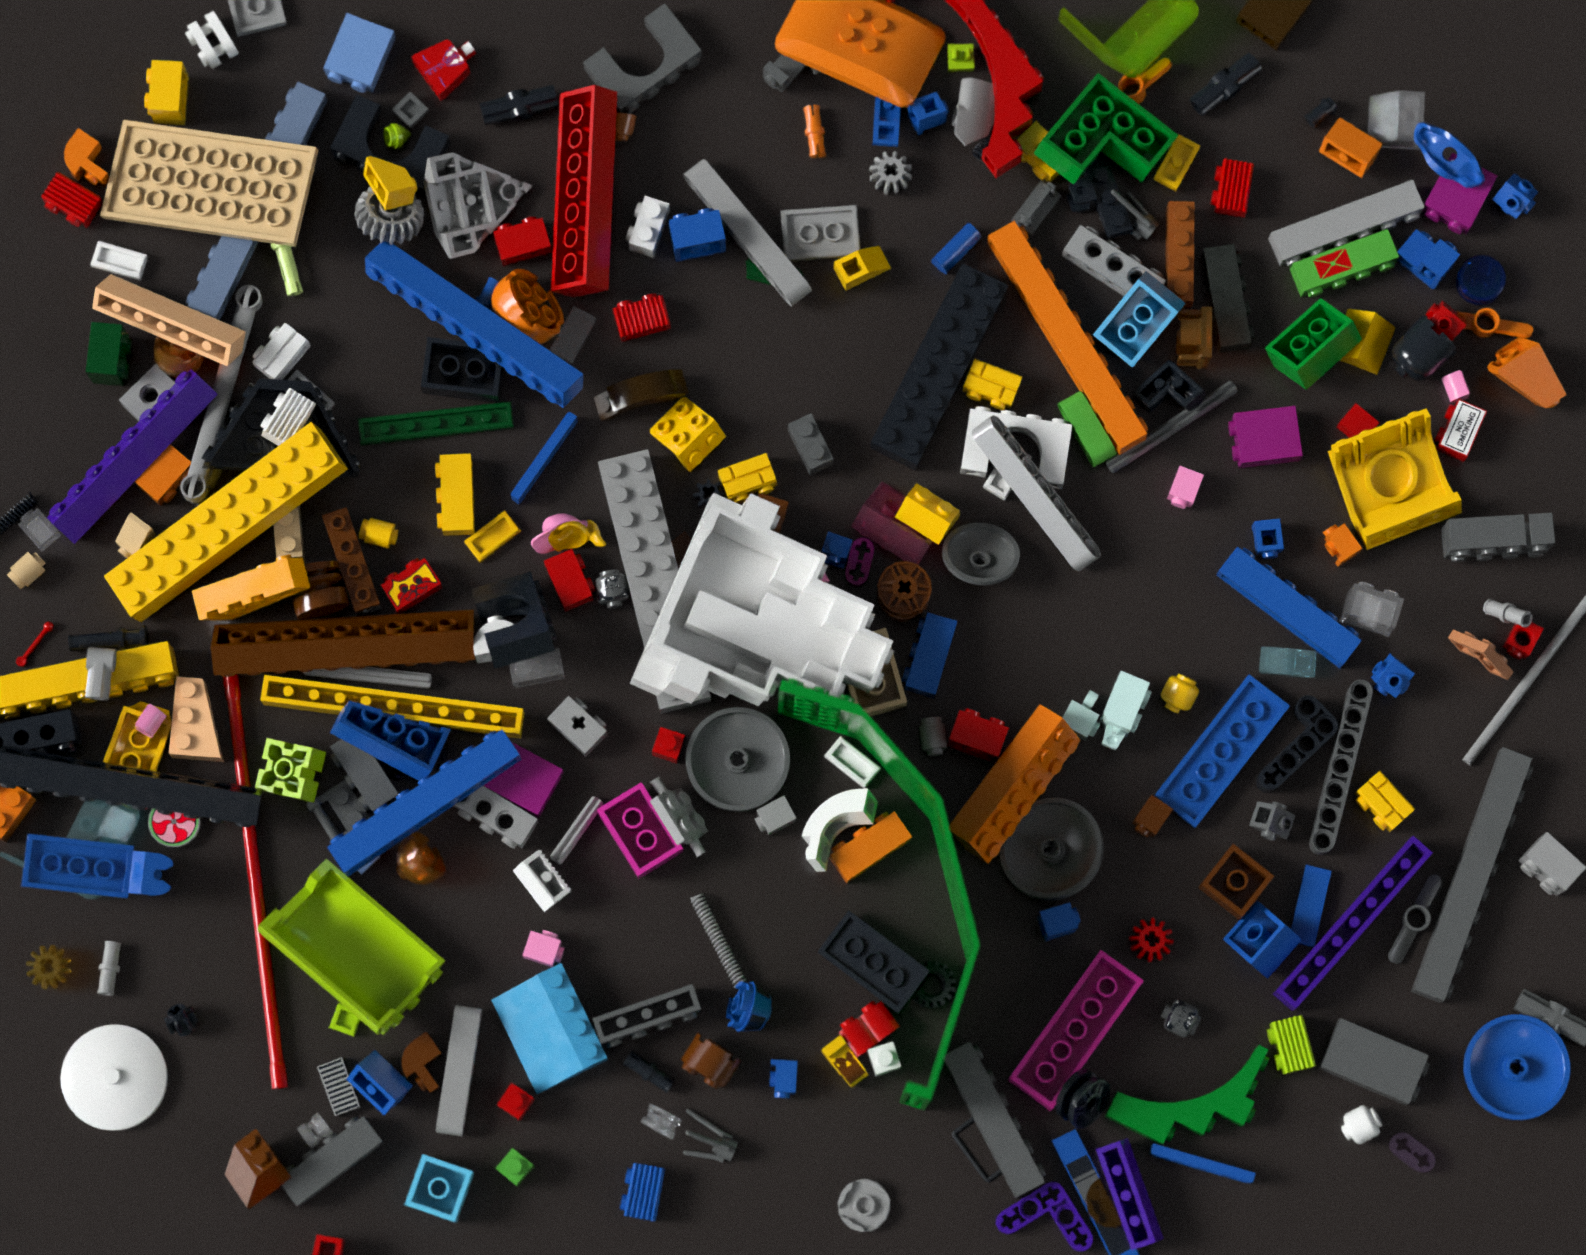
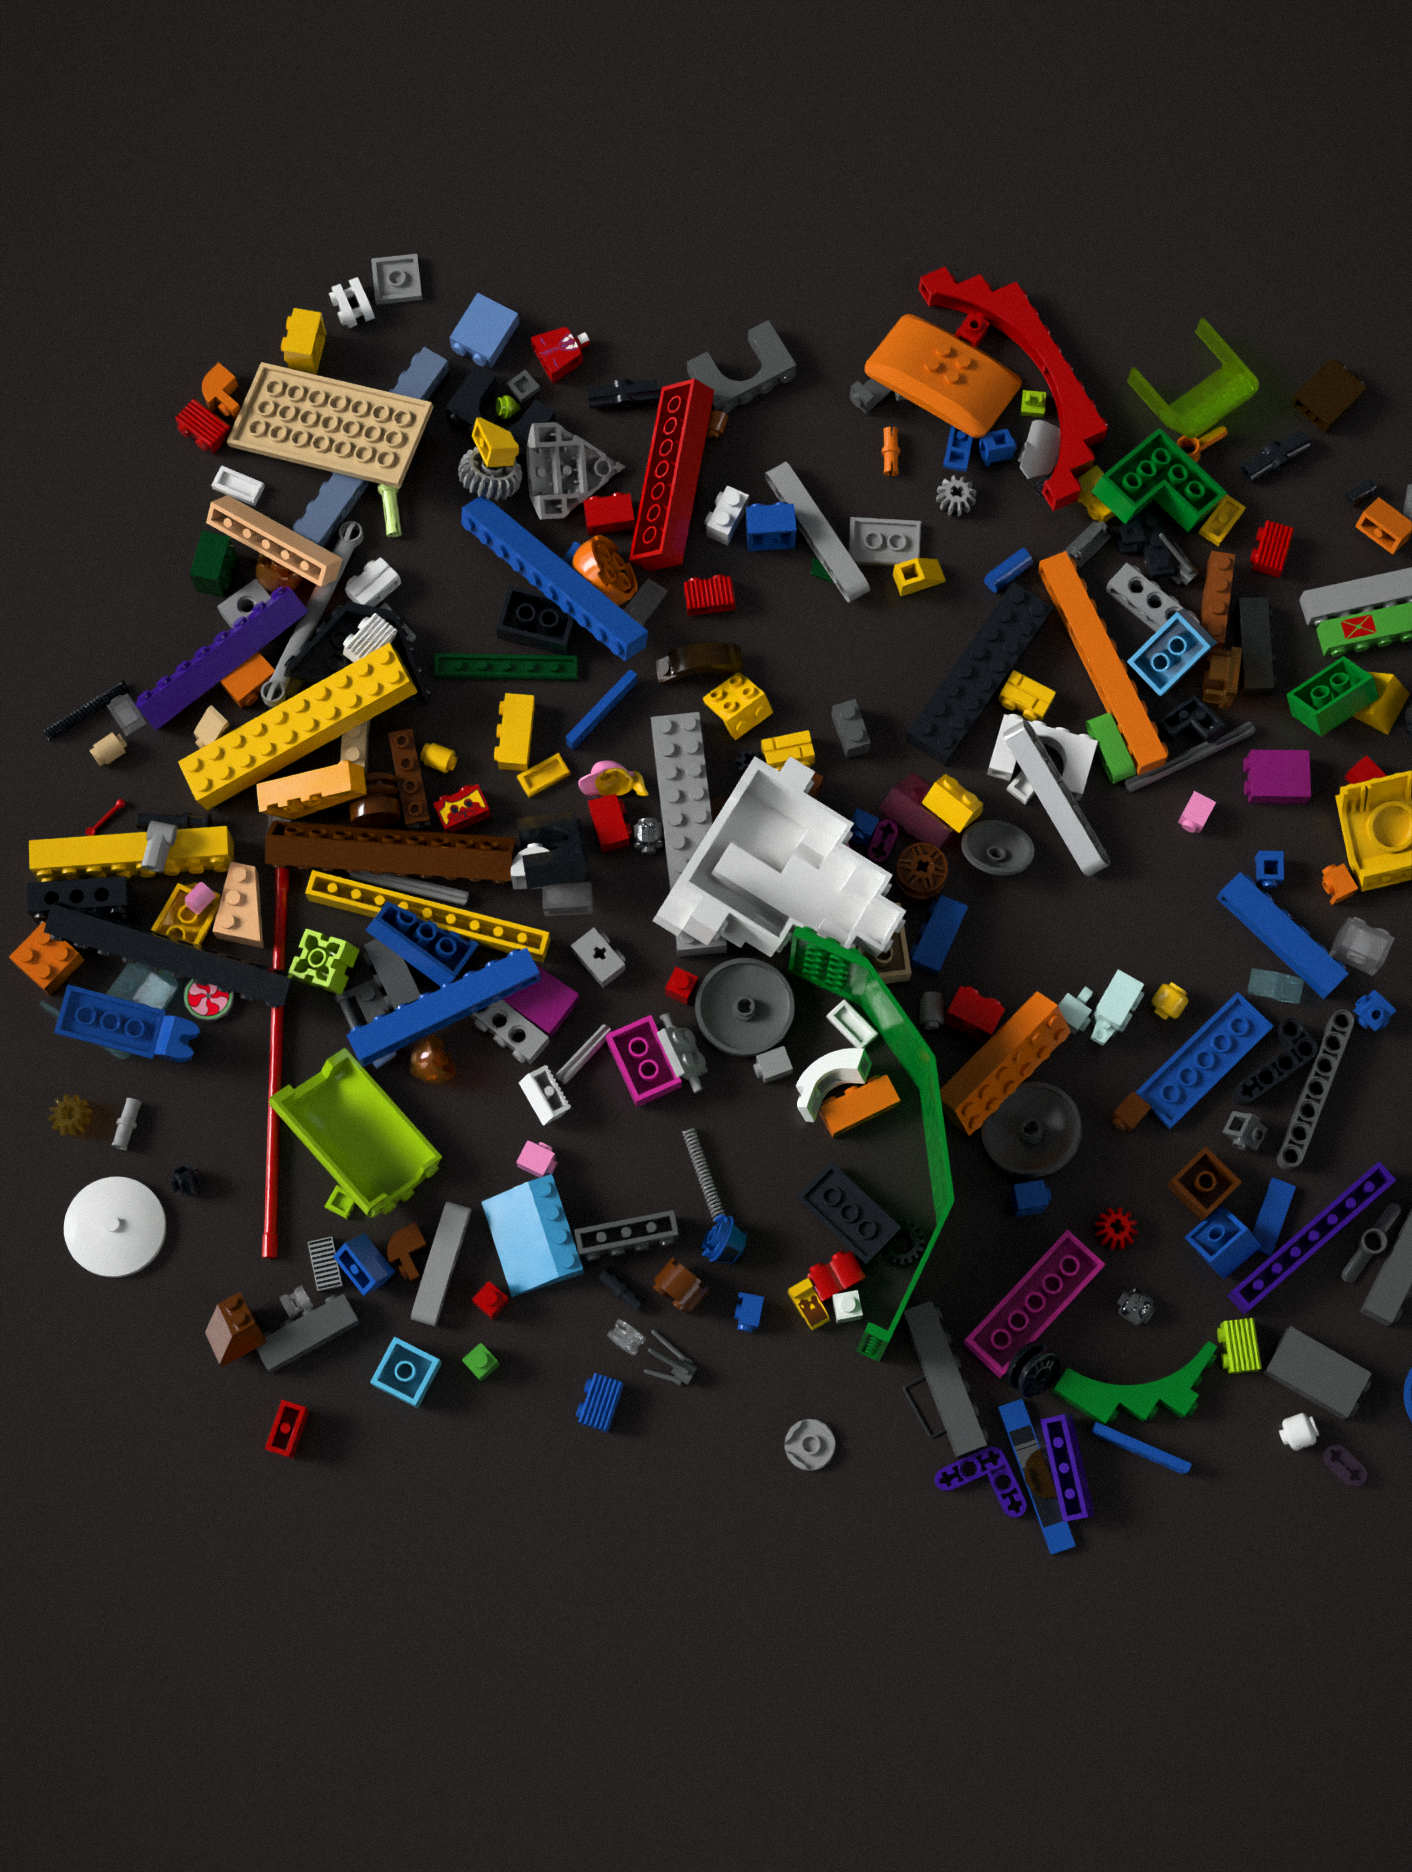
camera: 10 degrees right, 5 degrees down
(1383, 801) = (1353, 1128): yellow brick -> none

